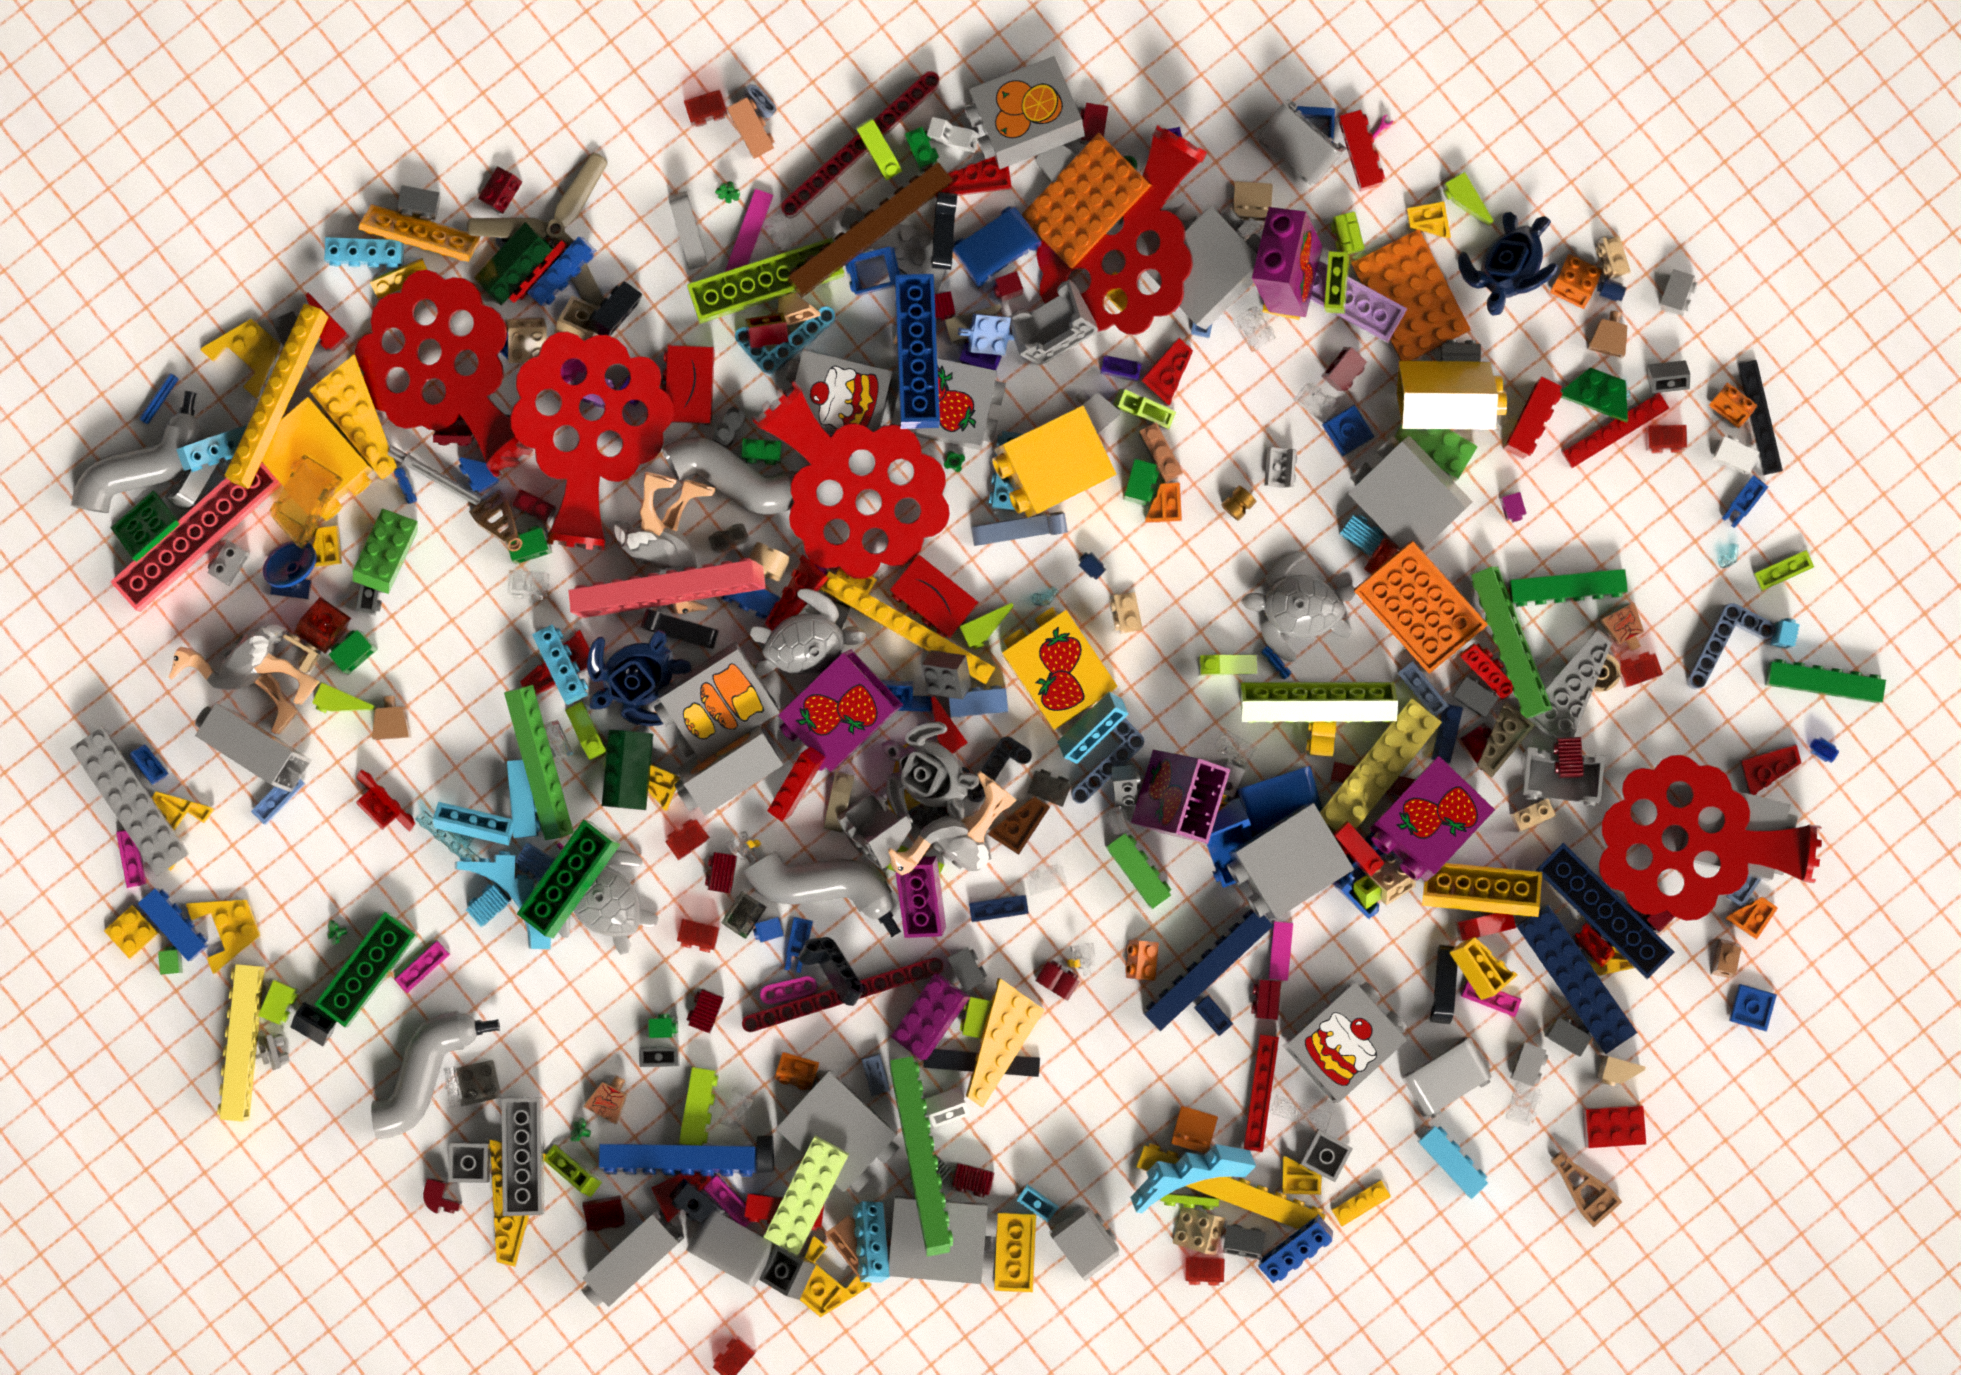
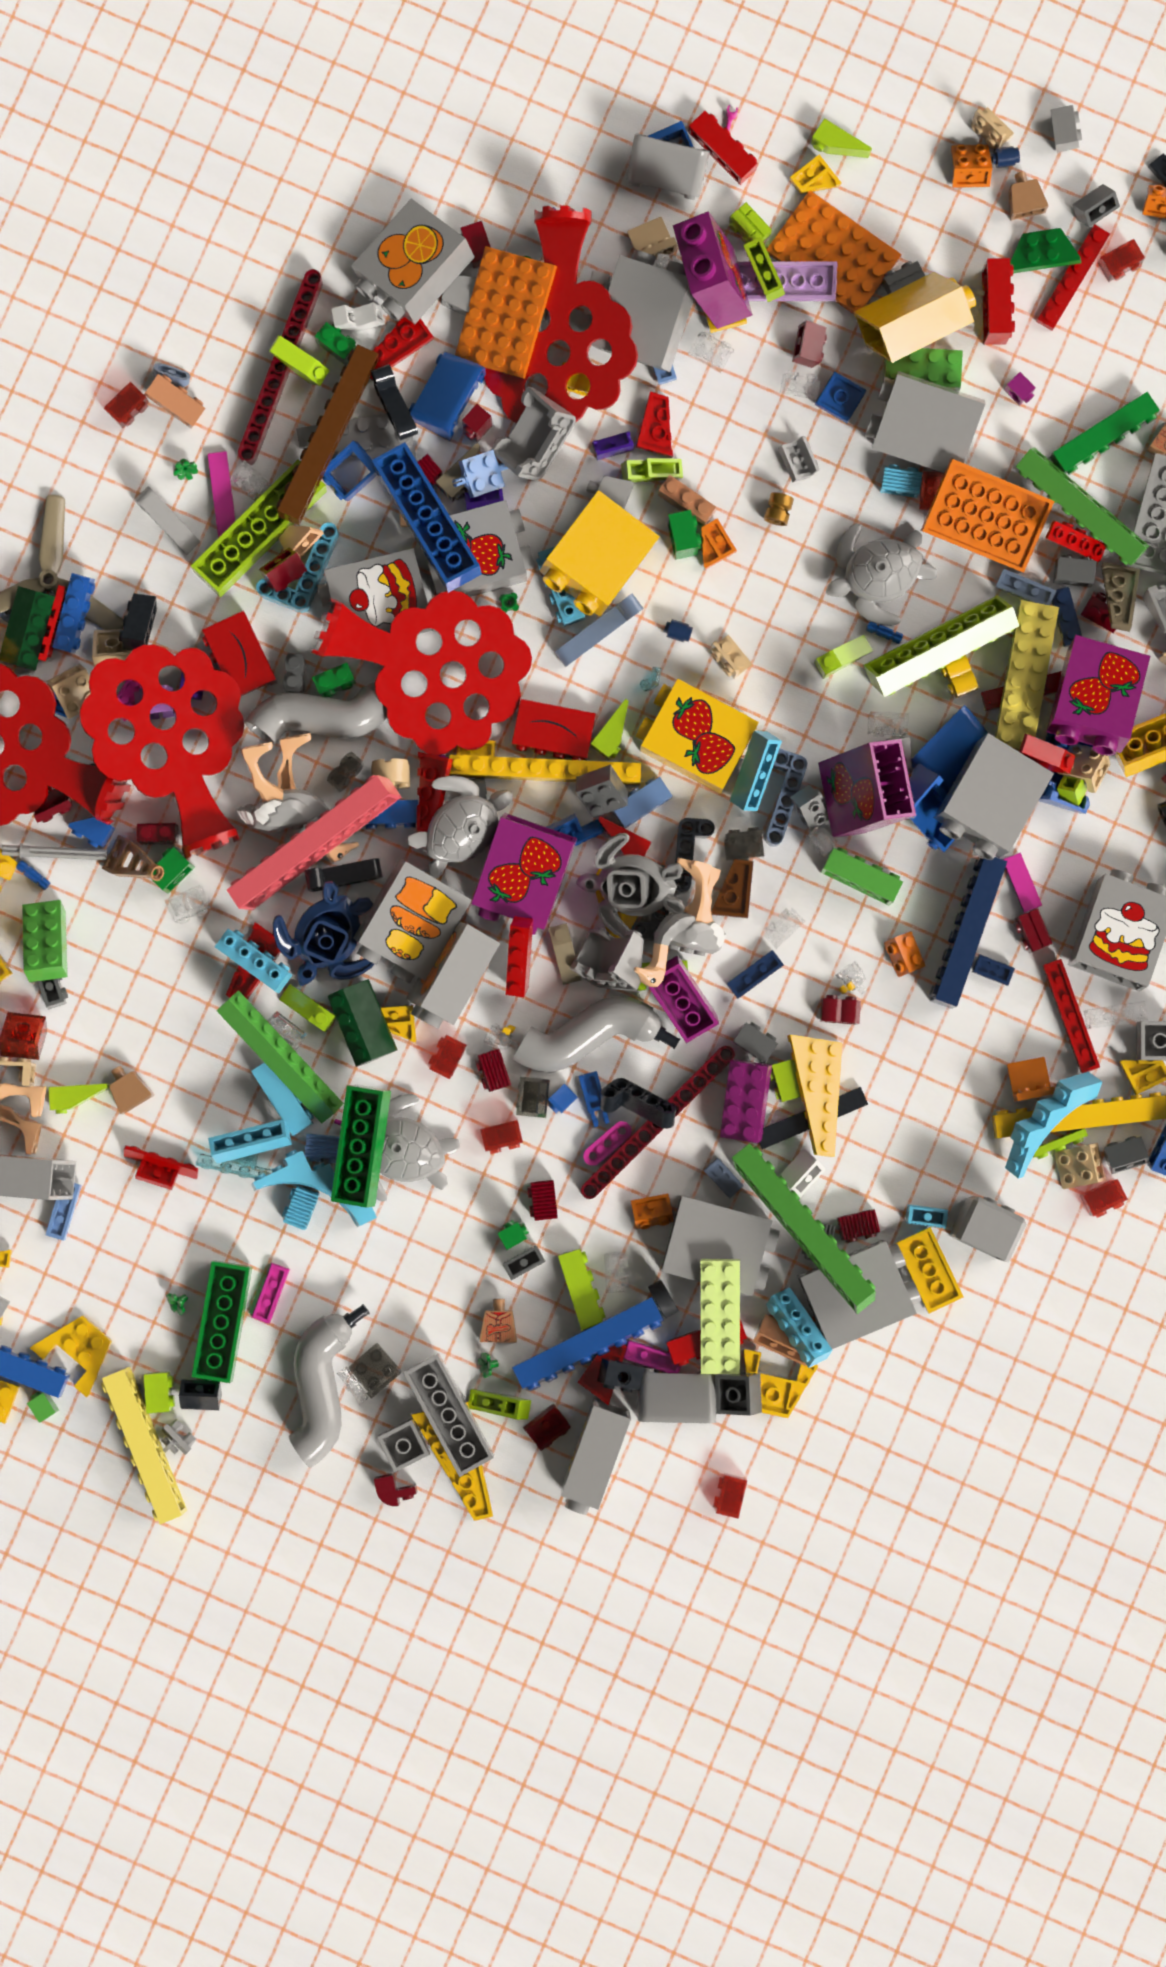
camera: 30 degrees left, 0 degrees up
(352, 651) = (62, 1045): green brick -> none
(1510, 263) = (907, 176): dark blue animal -> none

